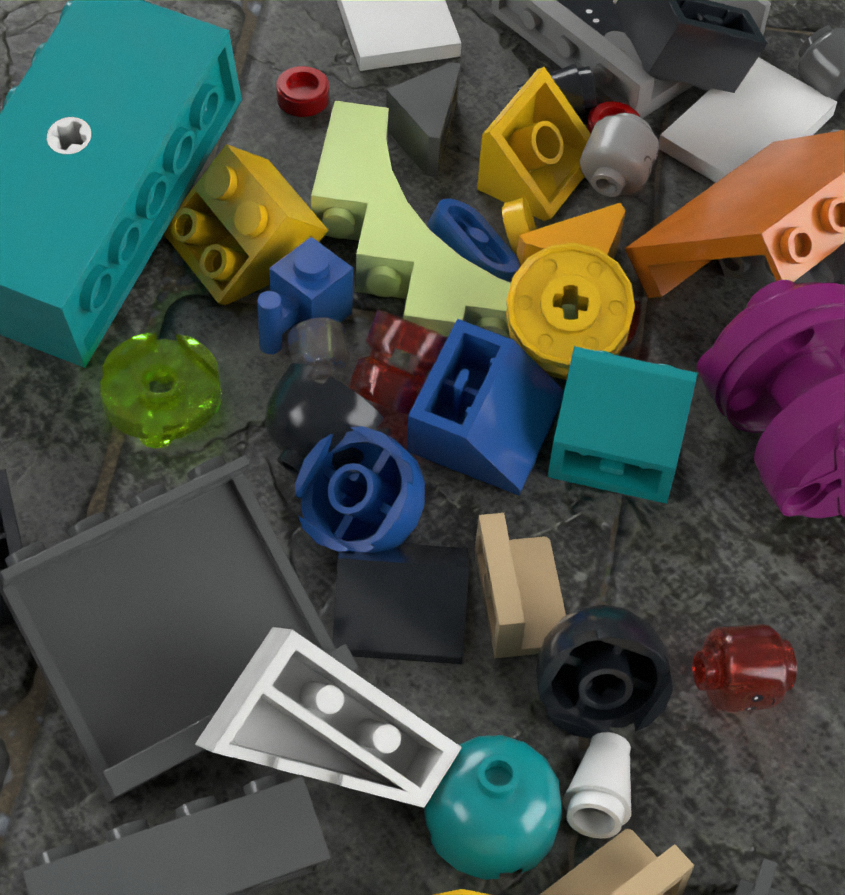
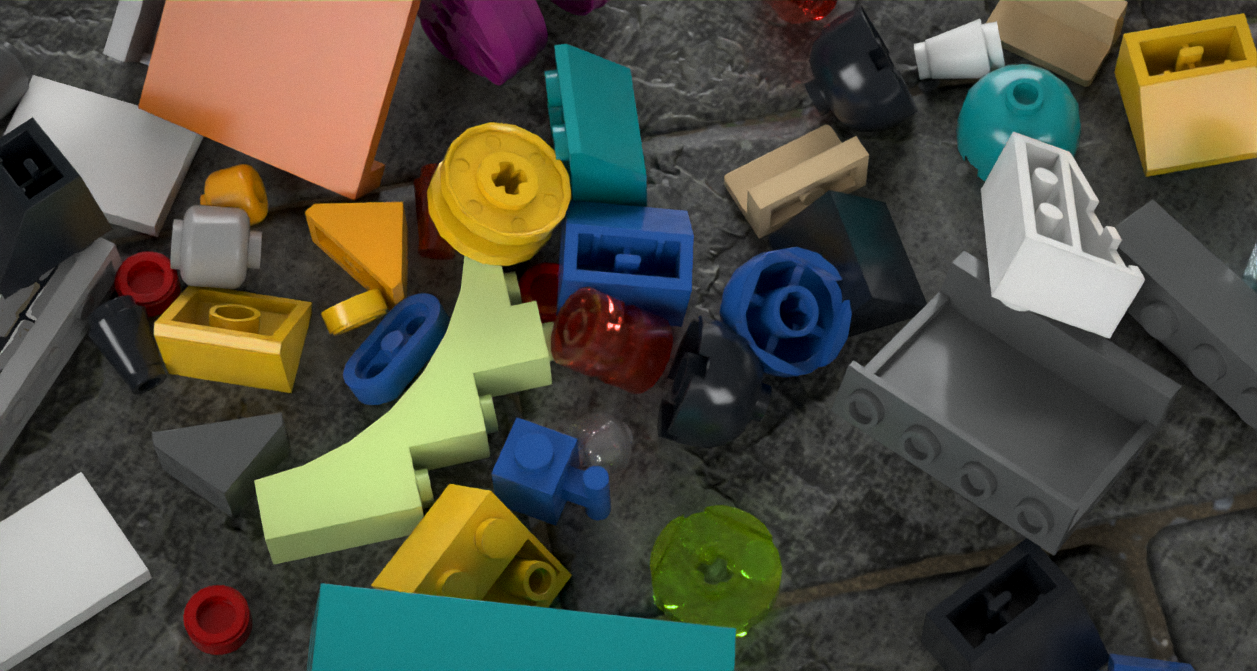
camera: 105 degrees left, 10 degrees up
(667, 190) = (237, 188): none -> light orange piece

